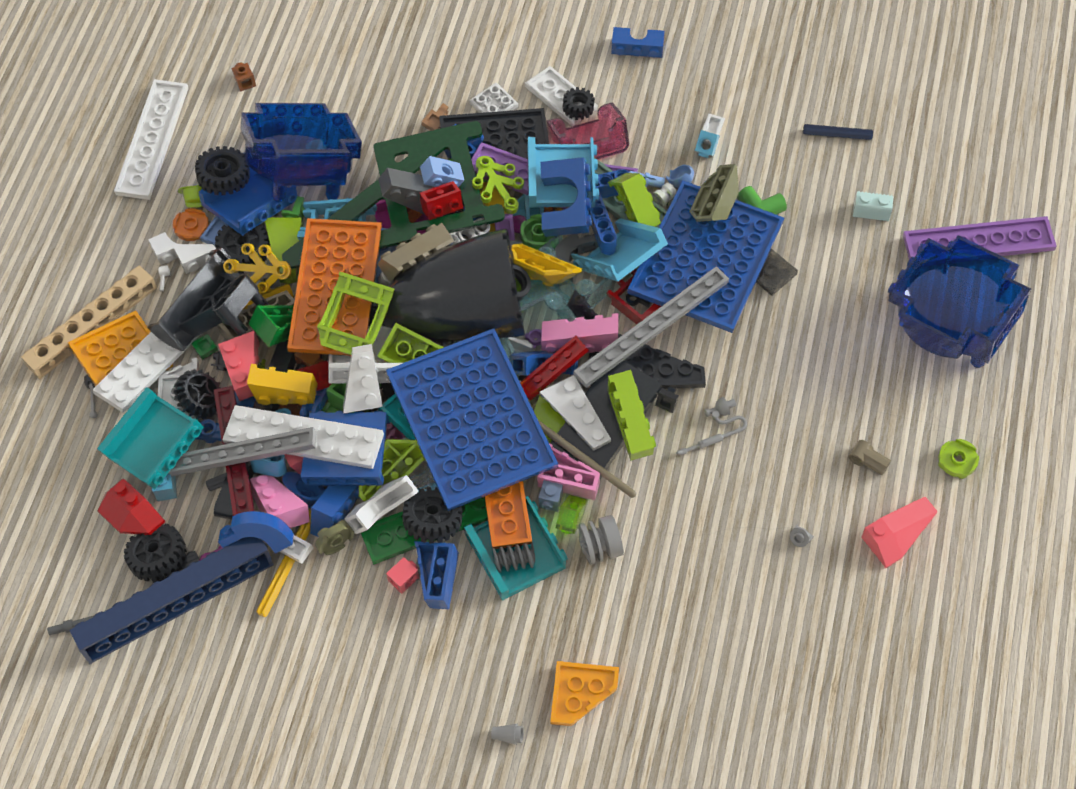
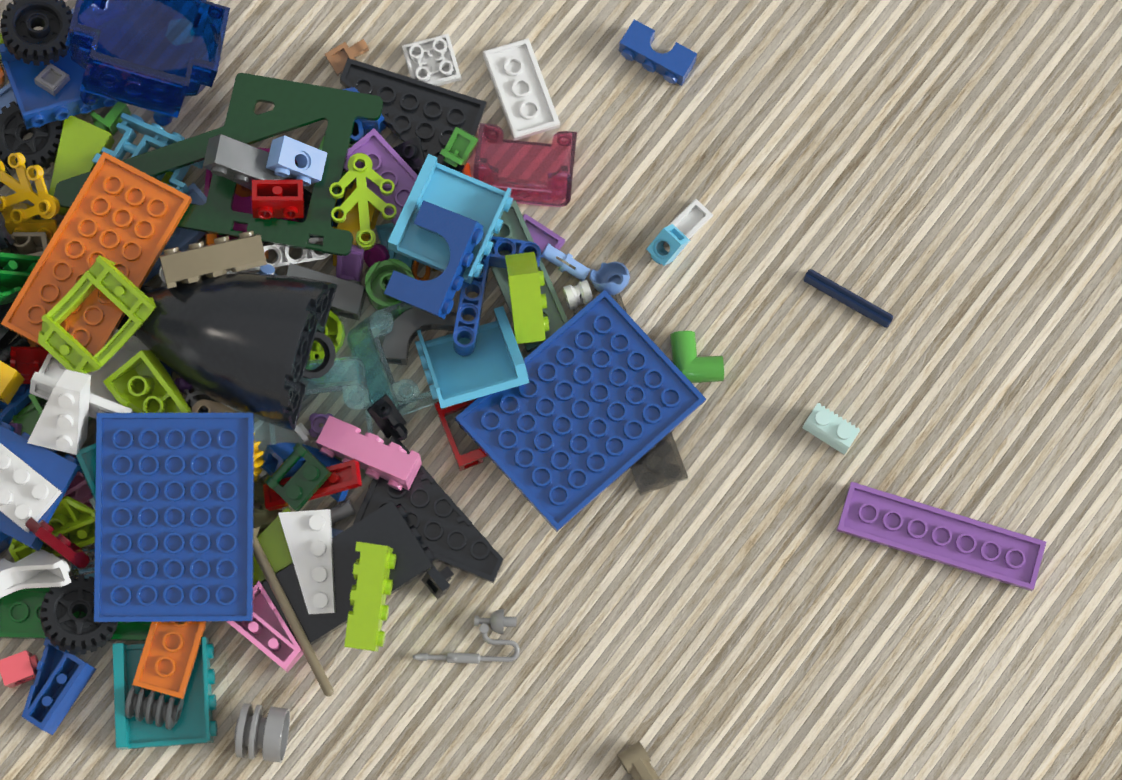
camera: 20 degrees right, 15 degrees up
(244, 201) = (52, 79): none -> light grey tile
(395, 467) = (58, 543): none -> dark red hinge
(542, 133) = (459, 147): none -> bright green bracket
(543, 266) = (361, 338): yellow wedge -> none
(547, 366) = (303, 482): none -> dark green plate
(550, 496) = (234, 647): sand blue brick -> none
(571, 514) = (249, 679): clear neon green slope -> none
(578, 96) = (532, 129): black tyre -> none
(650, 327) = (455, 486): light grey plate -> none
(716, 195) = (627, 338): olive wedge -> none
(959, 299) = (853, 617): clear blue windscreen -> none

